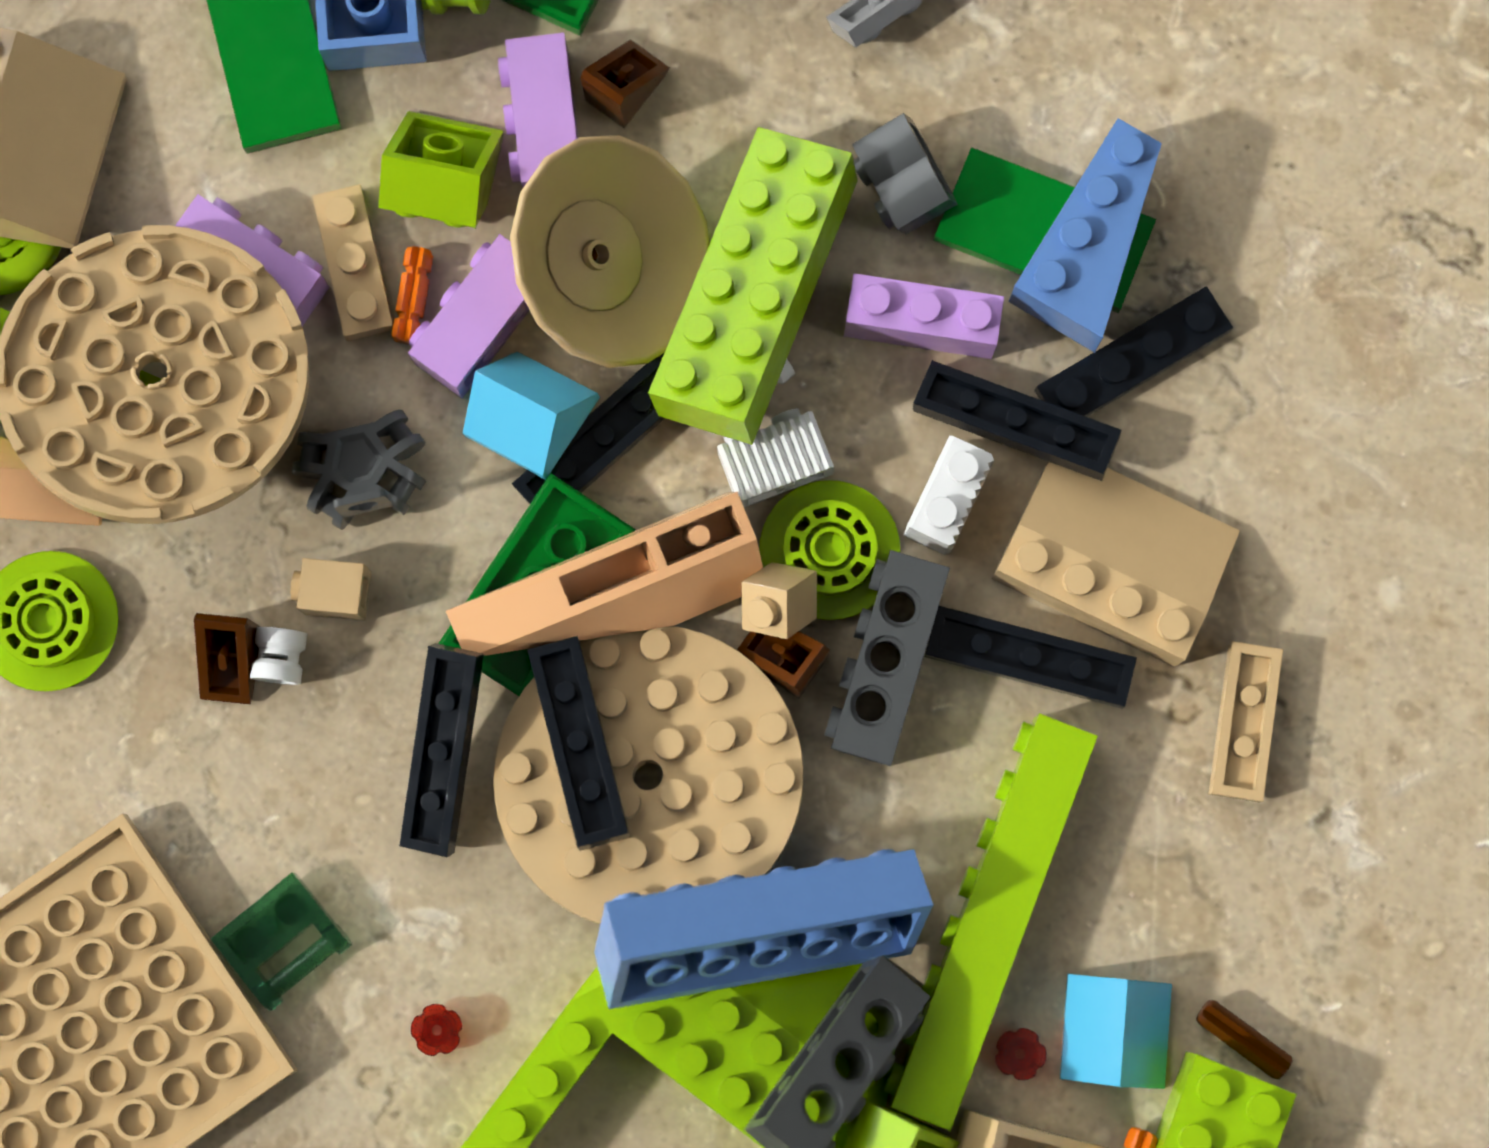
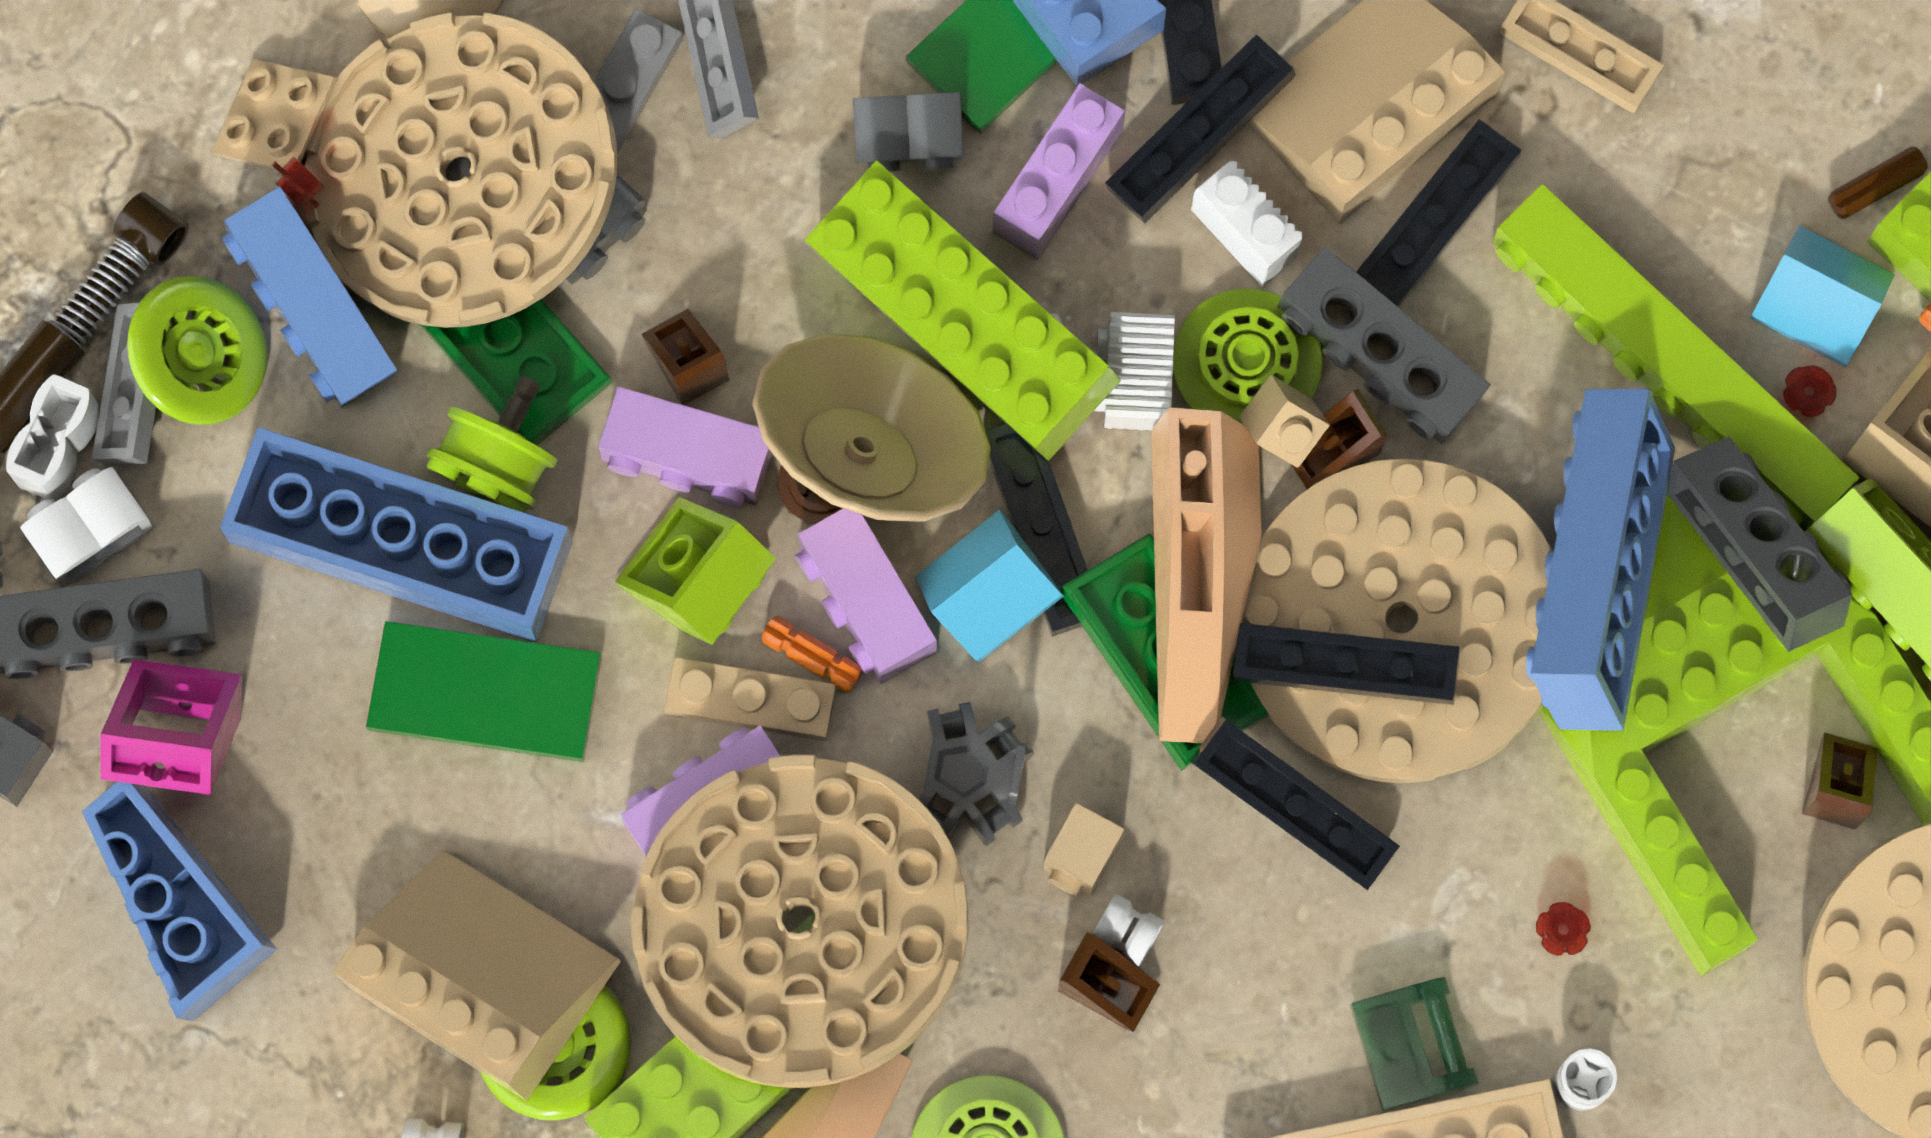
camera: 70 degrees left, 5 degrees down
(298, 1107) = (1593, 1073): none -> white wheel

